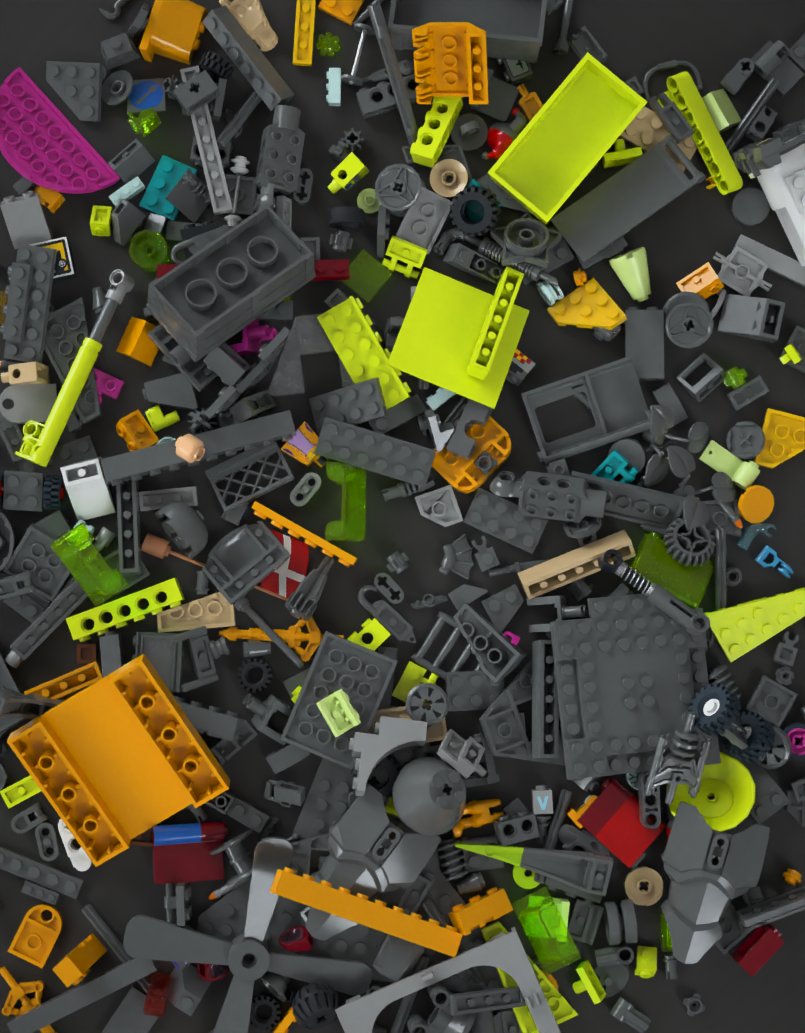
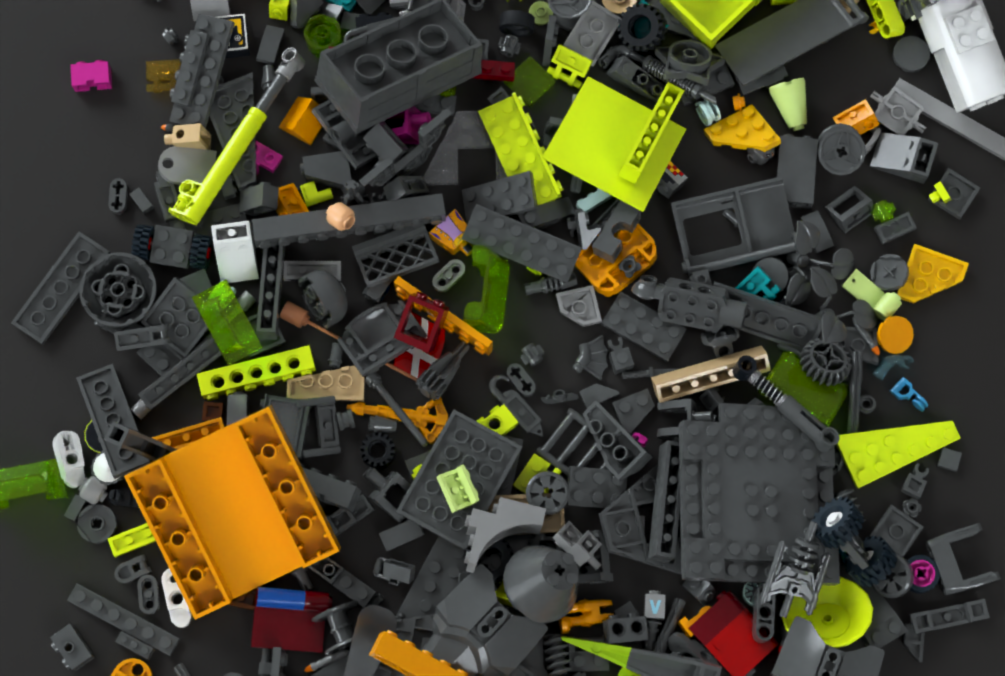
camera: 10 degrees right, 10 degrees down
(96, 265) = (270, 45): none -> dark grey slope
(105, 432) = (258, 199): none -> dark grey brick
(278, 563) = (415, 340): none -> dark red window

